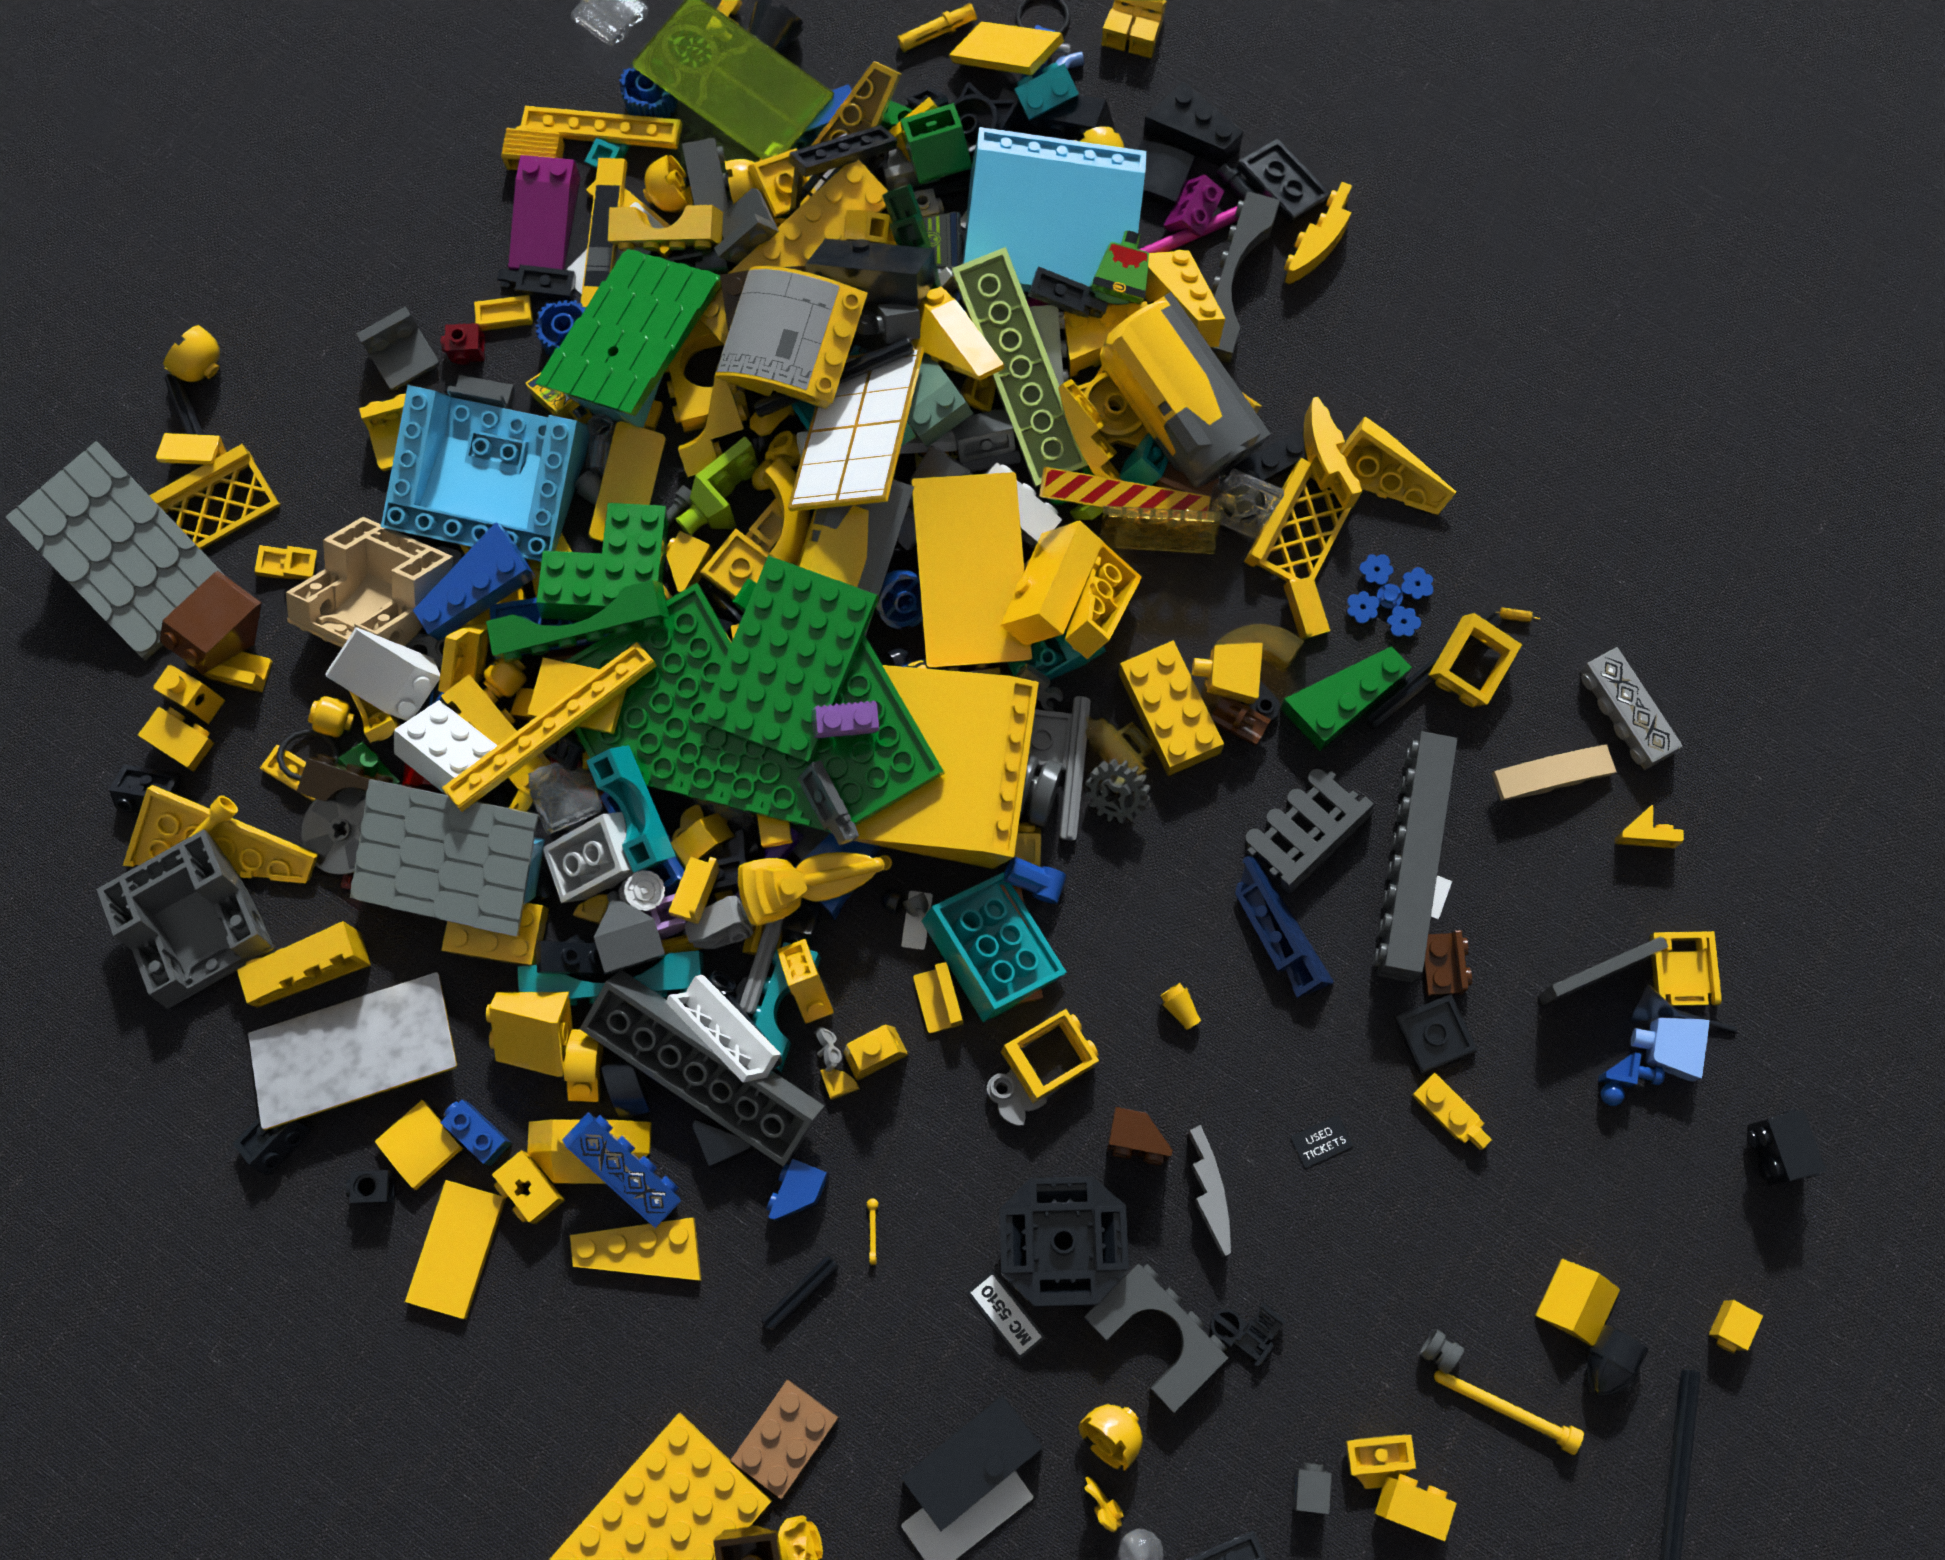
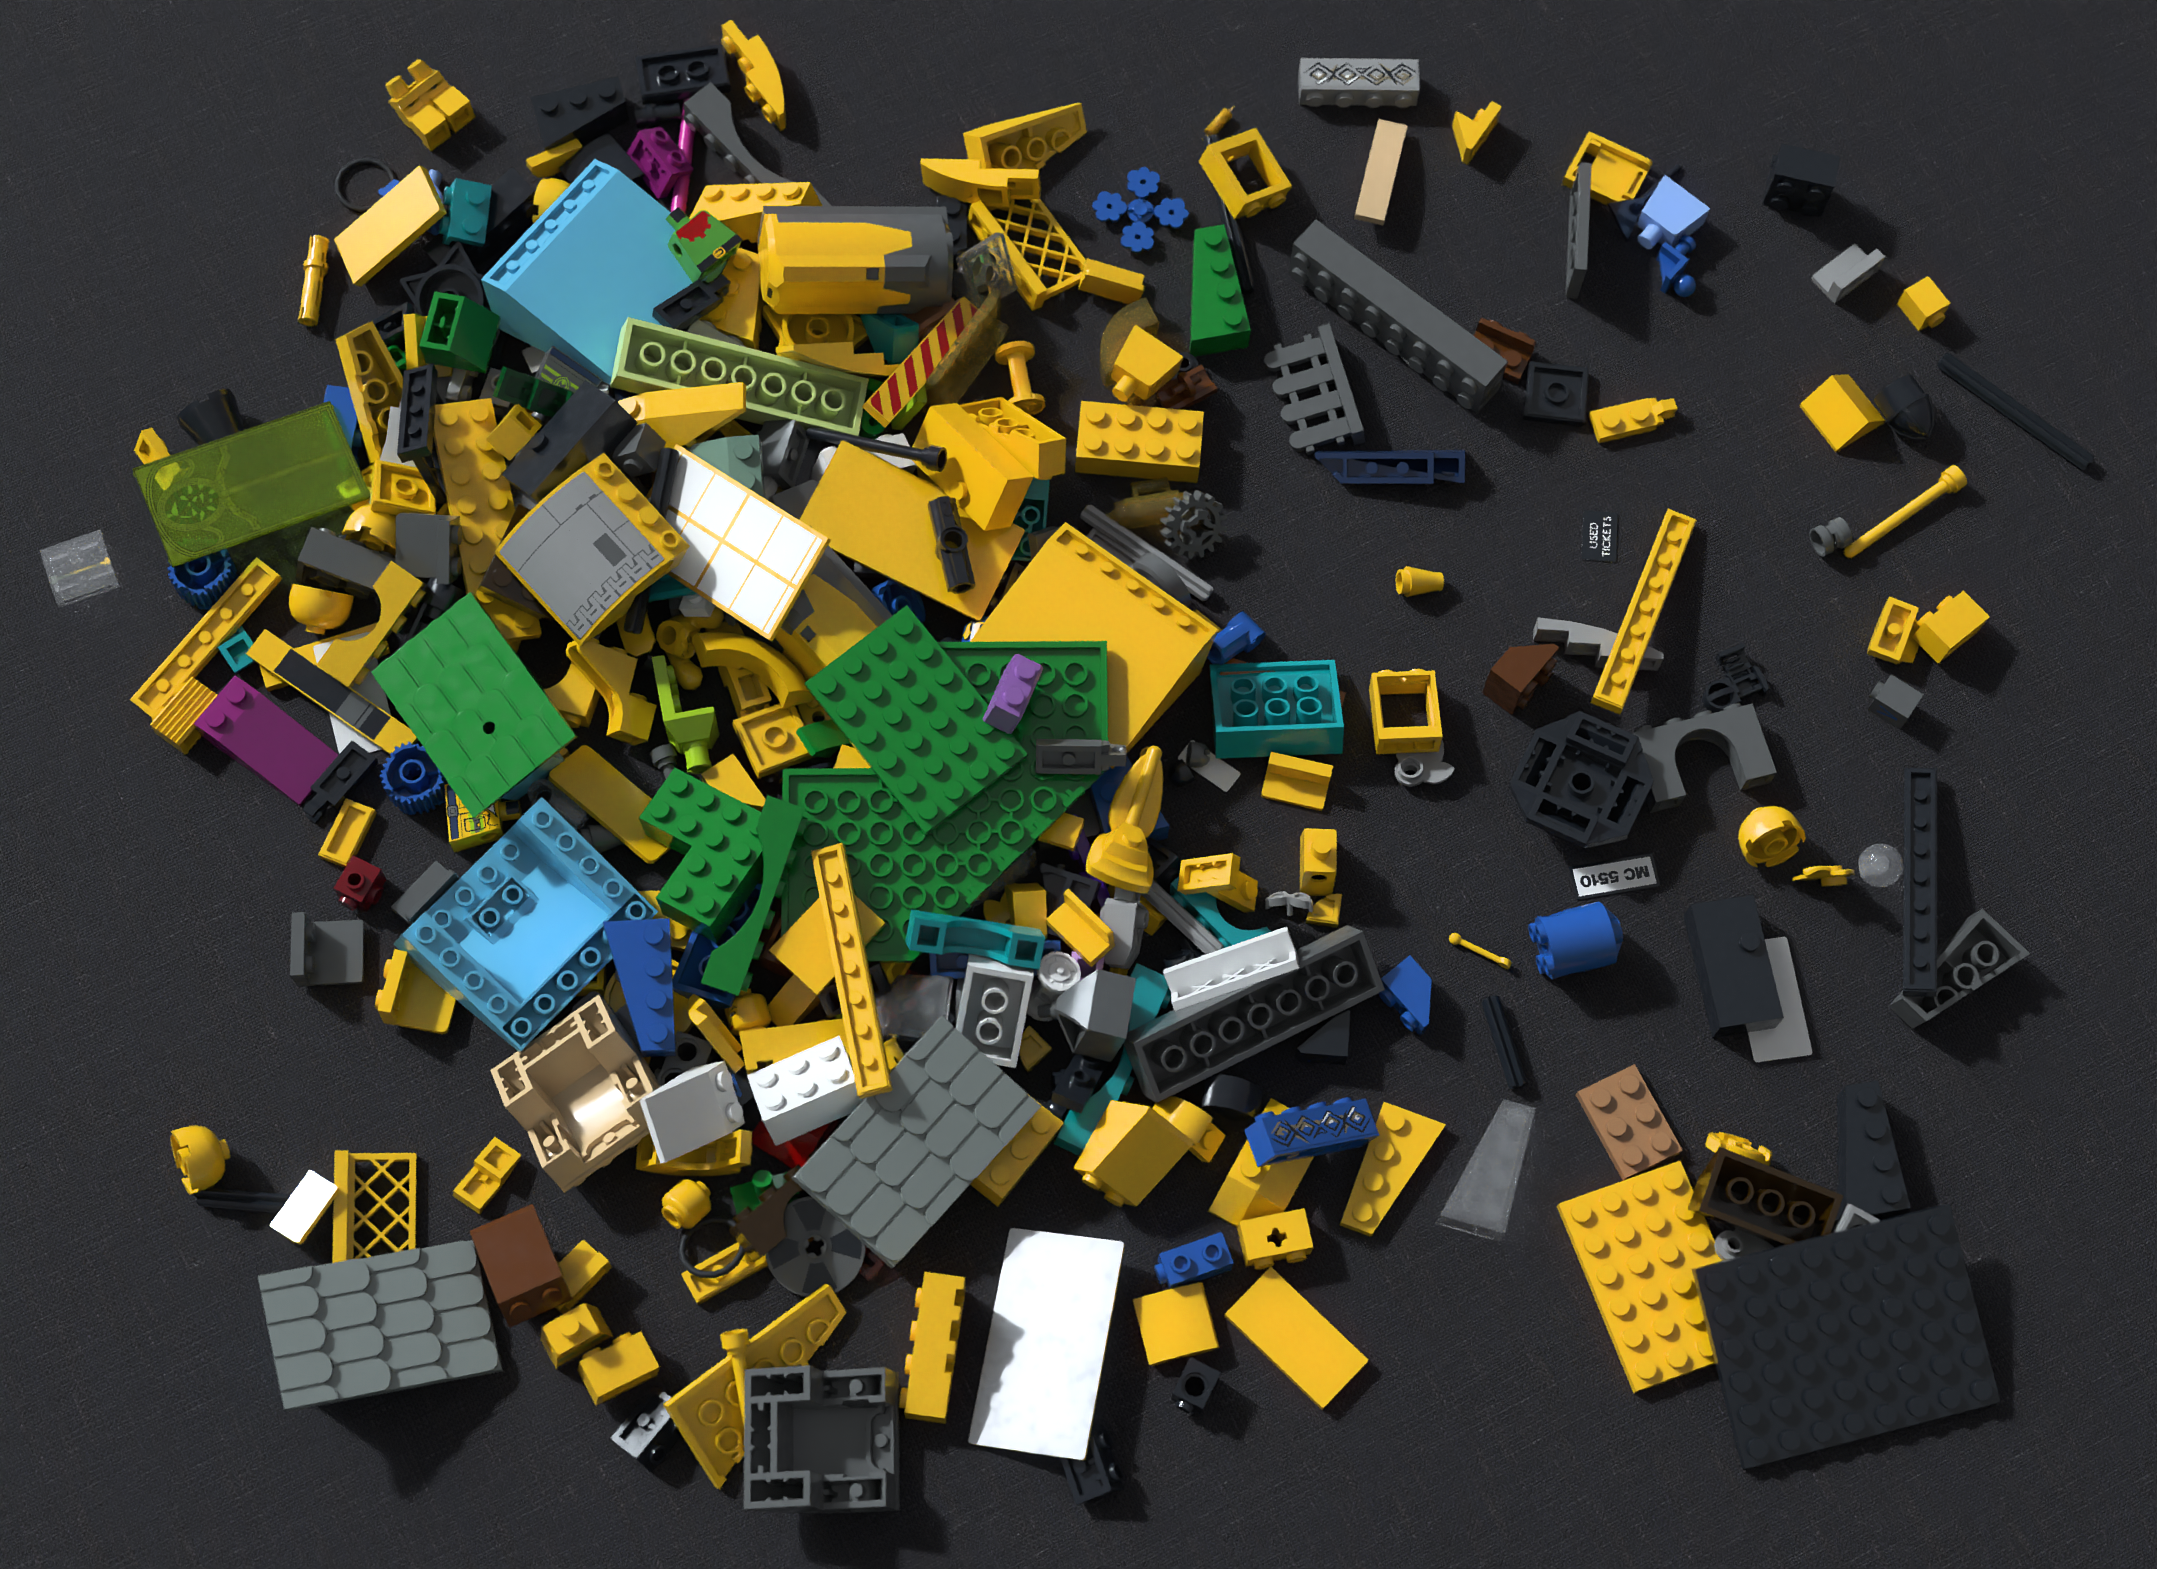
camera: 70 degrees left, 5 degrees down
(665, 1342) = (1489, 1182): none -> clear wedge
(917, 1310) = (1576, 940): none -> blue cylinder
(959, 619) = (954, 561): none -> black piece
(1035, 547) = (932, 457): none -> black piece
(1141, 129) = (549, 161): none -> yellow tile
(1186, 569) = (1016, 355): none -> yellow hose
(1262, 1215) = (1643, 612): none -> yellow tile
(1724, 1237) = (1847, 272): none -> light grey panel

